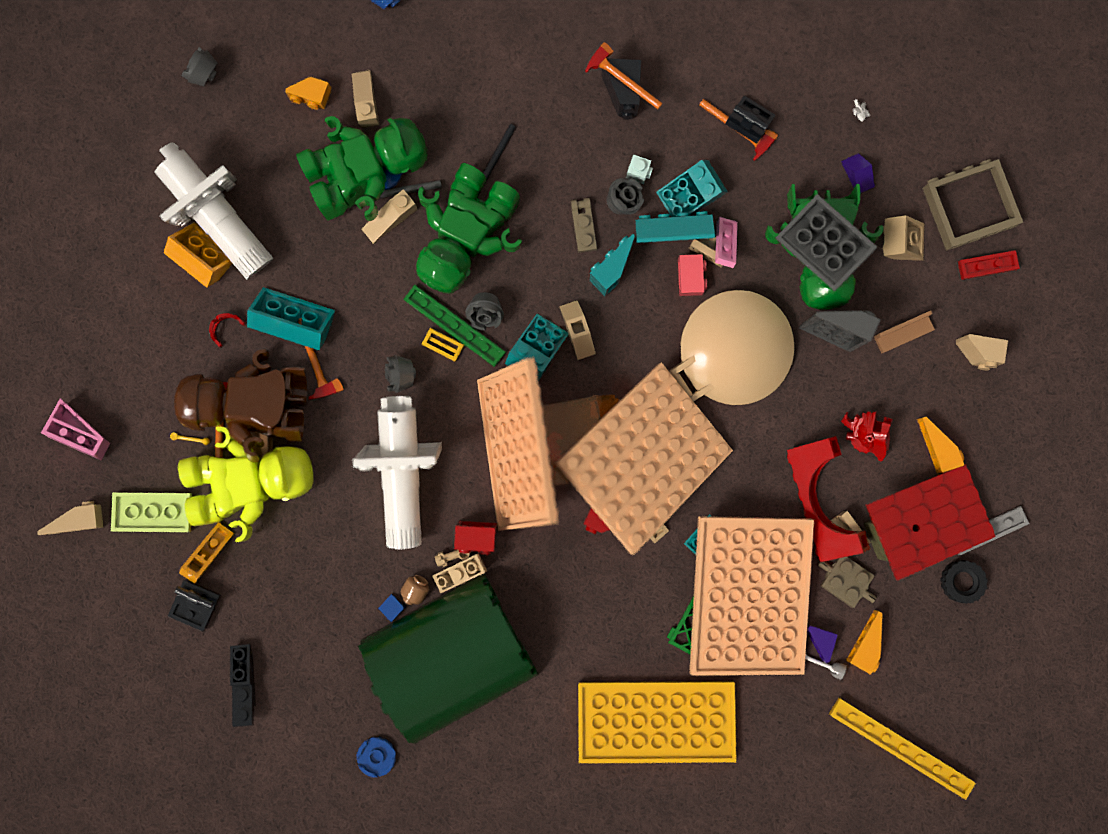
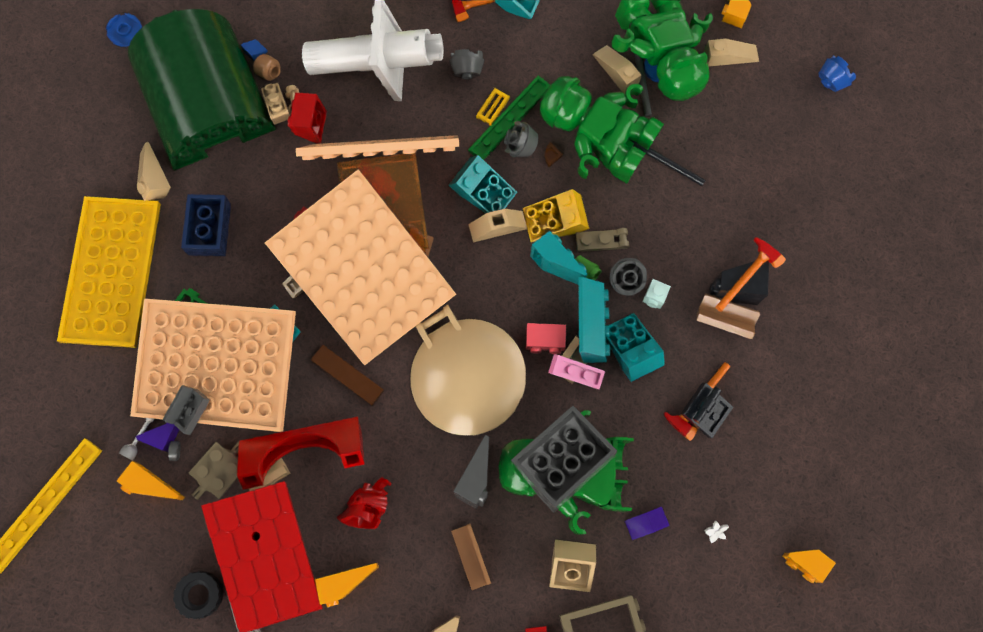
camera: 95 degrees right, 10 degrees down
(493, 280) = (552, 154): none -> reddish brown tile
(551, 696) = (151, 178): none -> tan slope
(564, 272) = (559, 214): none -> yellow slope
(603, 627) = (206, 225): none -> dark blue brick
(614, 237) = (592, 269): none -> bright green cone
(662, 89) = (733, 318): none -> medium nougat panel
(743, 466) = (347, 375): none -> reddish brown tile
(800, 613) = (186, 409): none -> dark grey bracket
(833, 625) = (174, 450): none -> dark grey tile
(880, 25) = (812, 563): none -> light orange slope

